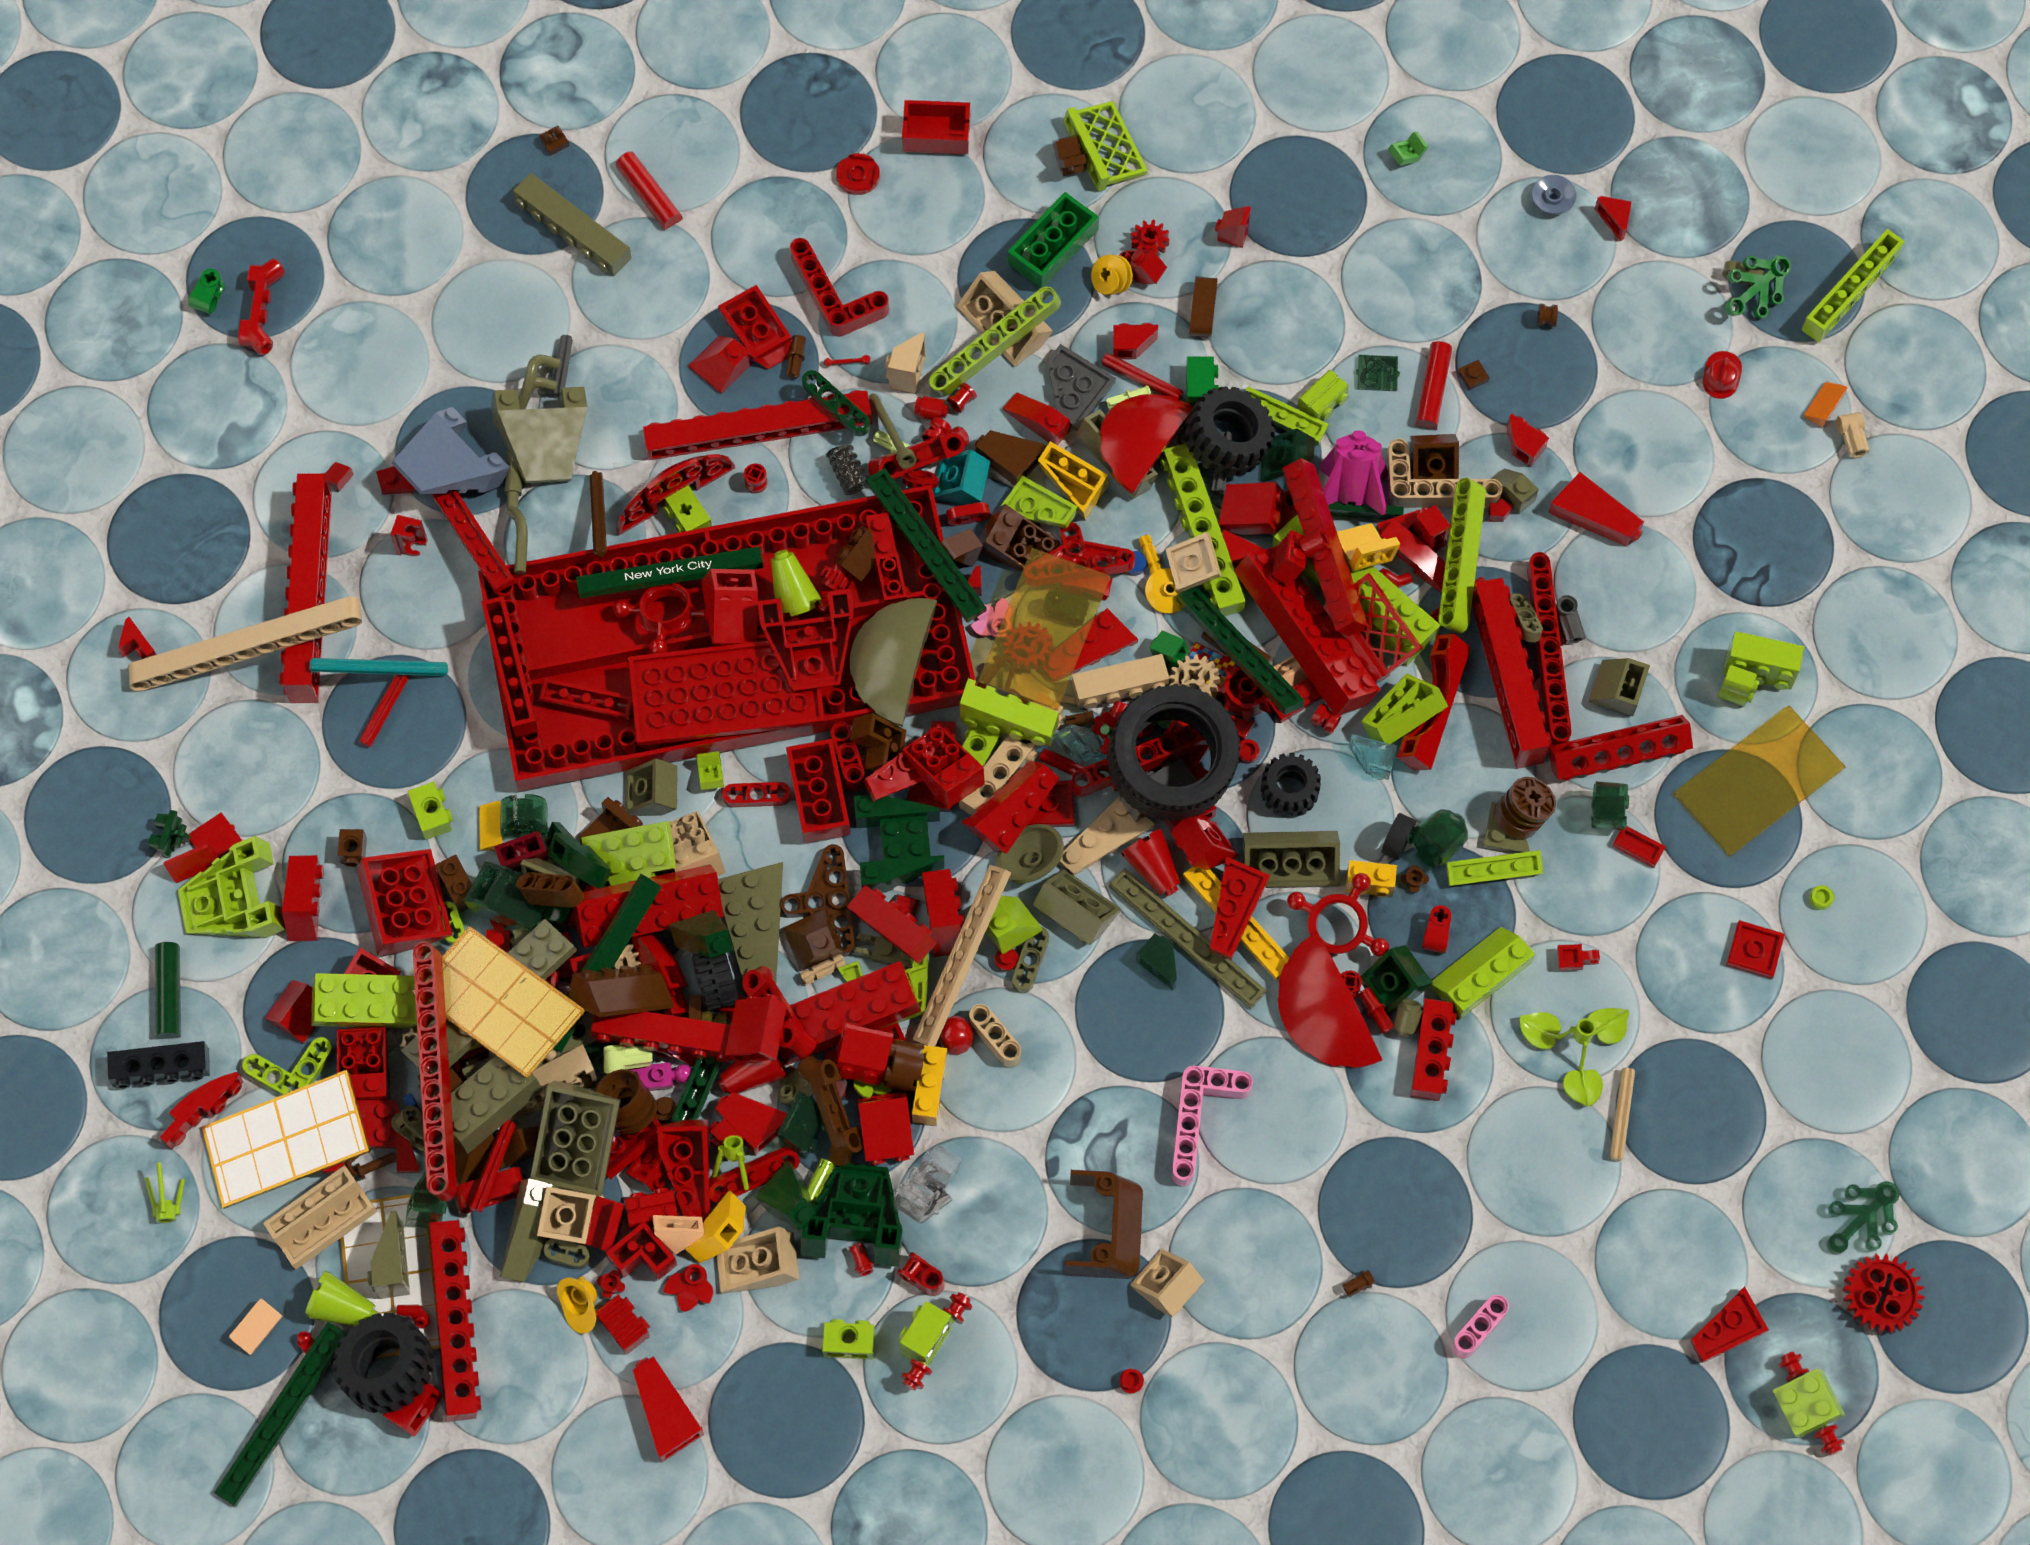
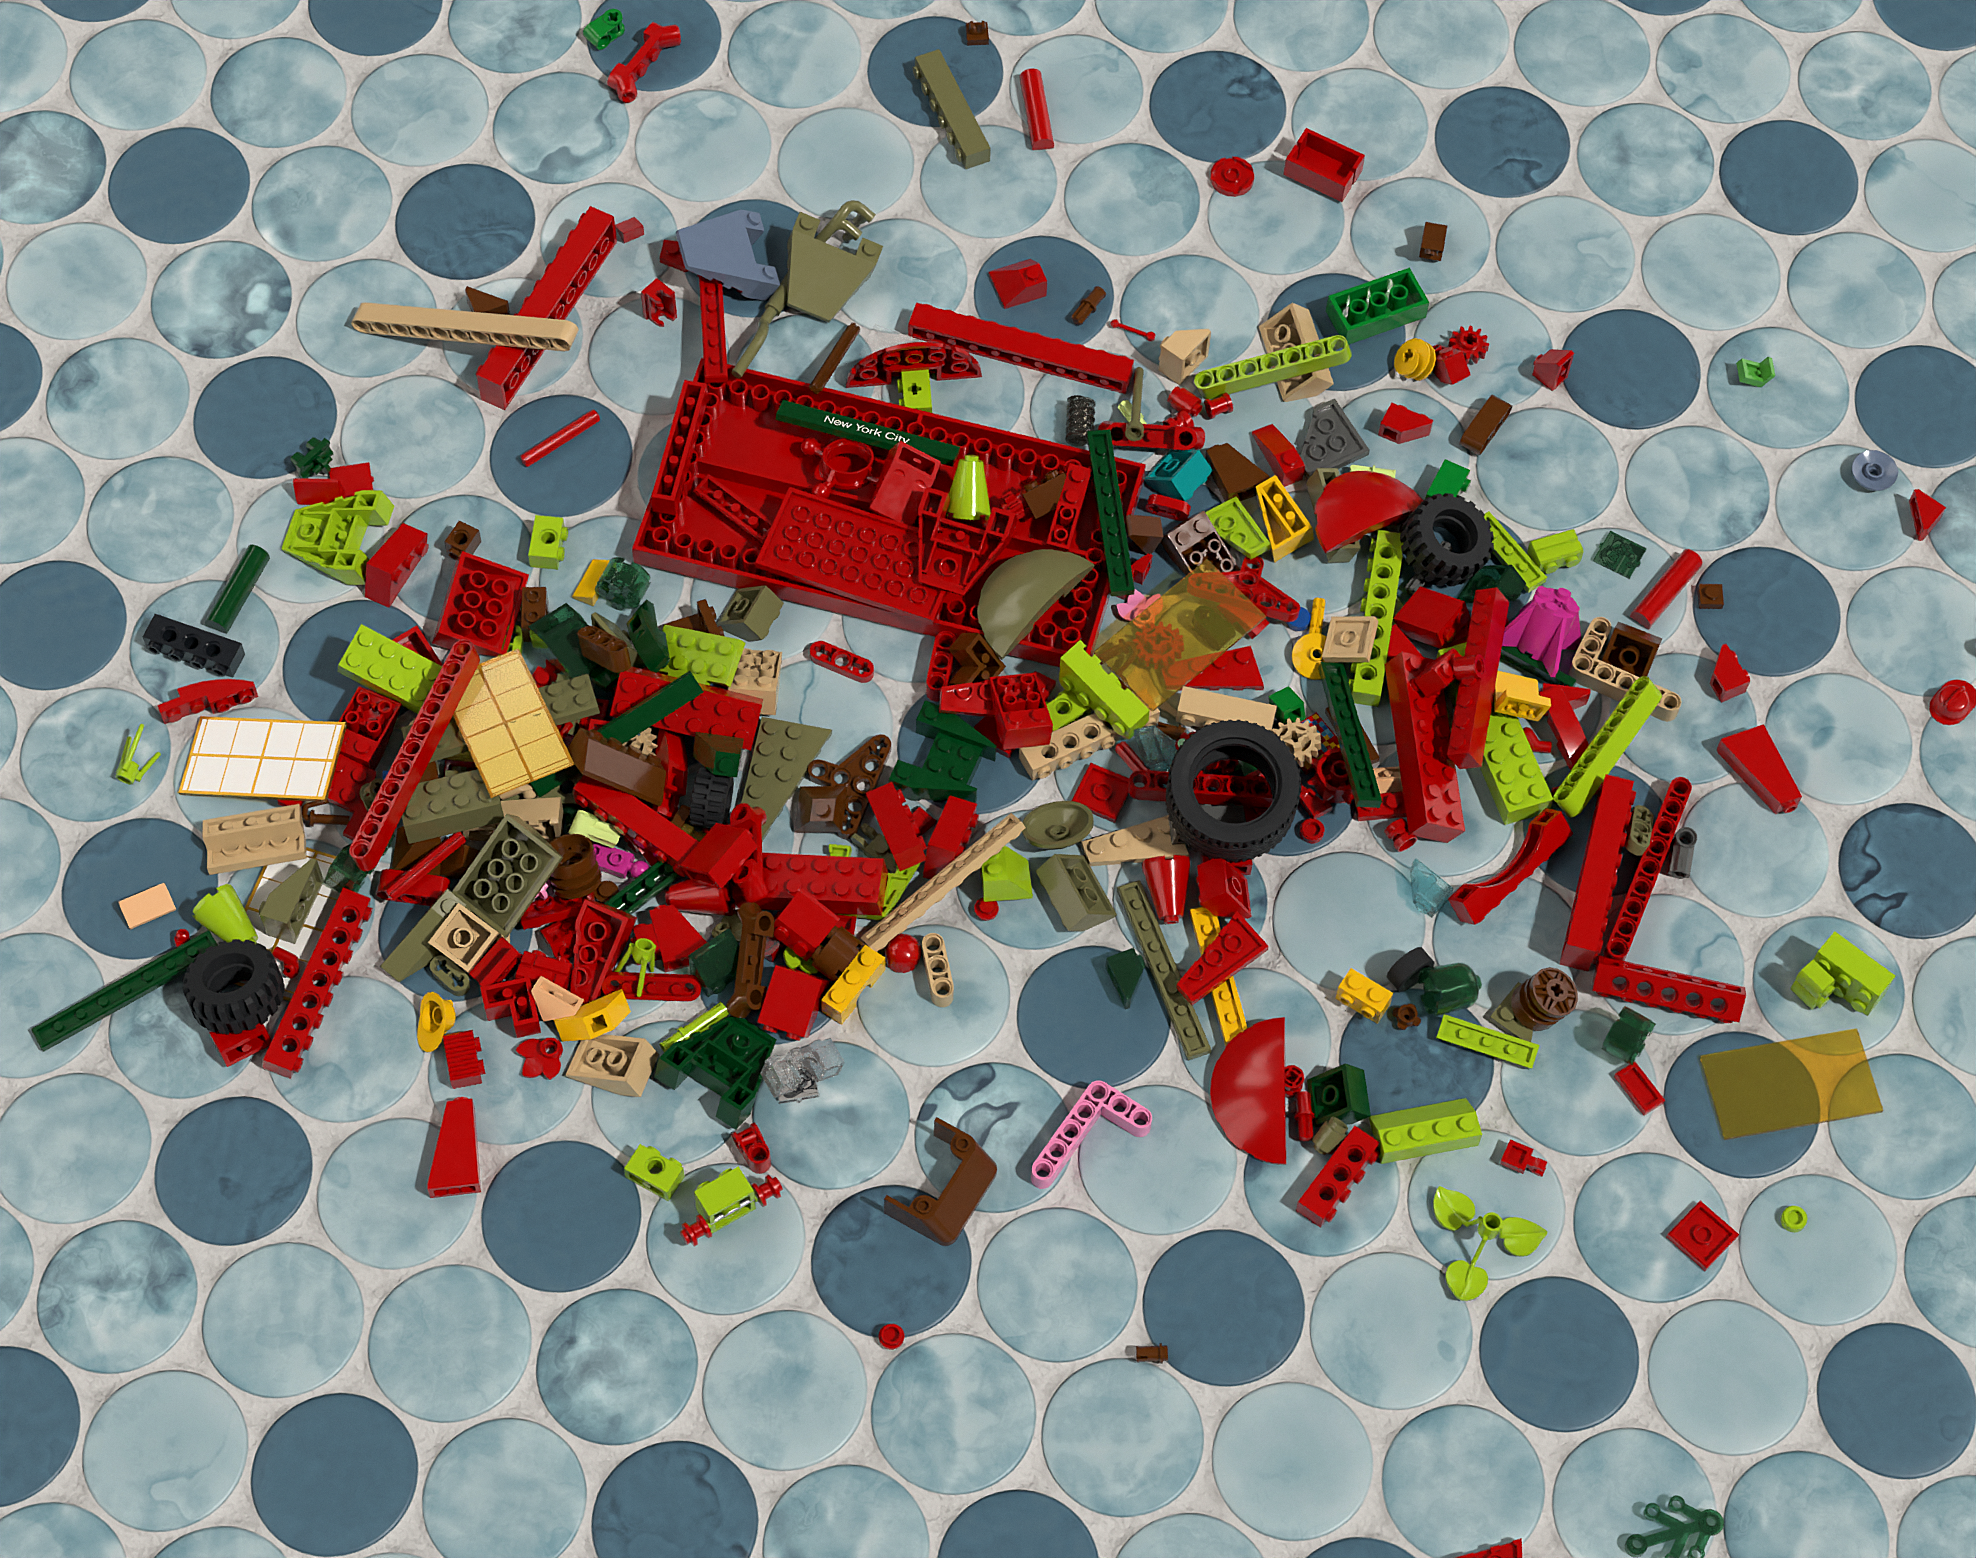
camera: 25 degrees right, 5 degrees down
(133, 640) = (375, 285): red slope -> none
(246, 612) = (486, 303): none -> reddish brown slope
(294, 1011) = (328, 656): red slope -> none
(296, 1076) = (304, 712): lime beam -> none
(378, 666) = (569, 399): teal axle -> none
(526, 847) = (611, 608): dark red brick -> none
(563, 354) = (879, 220): dark grey axle -> none
(604, 1281) = (473, 1013): red plate -> none
(710, 770) = (811, 621): lime bracket -> none
(756, 483) = (993, 391): red wheel -> none
(757, 327) = (1067, 265): red slope -> none
(787, 1197) = (670, 1018): dark green slope -> none
(818, 791) = (896, 682): red brick -> none
(822, 969) = (814, 839): tan axle -> none
(827, 294) = (1153, 288): red beam -> none
(834, 404) = (1099, 357): dark green beam -> none
(862, 1262) = (706, 1108): red pin -> none
(920, 478) = (1141, 456): red gear -> none
(1012, 807) = (1062, 776): red wedge -> none
(1031, 977) = (991, 925): olive beam -> none
(1087, 145) = (1454, 248): lime fence -> none
(1141, 376) = (1394, 460): red axle -> none
(1167, 1282) = (973, 1265): tan slope -> none
(1290, 802) = (1337, 860): black tyre -> none
(1294, 857) = (1302, 943): olive slope -> none
(1360, 883) = (1348, 991): red piece -> none
(1361, 644) = (1469, 781): red fence -> none
(1403, 709) = (1476, 858): lime wedge -> none
(1431, 528) = (1592, 710): red brick -> none
(1437, 933) = (1400, 1074): red piece -> none
(1485, 1316) = (1254, 1440): bright pink beam -> none
(1499, 511) = (1668, 727): red piece -> none
(1517, 489) = (1695, 715): olive slope -> none
(1547, 315) = (1810, 573): reddish brown wheel -> none
(1619, 684) = (1699, 933): olive slope -> none
(1622, 1114) = (1489, 1323): tan axle -> none

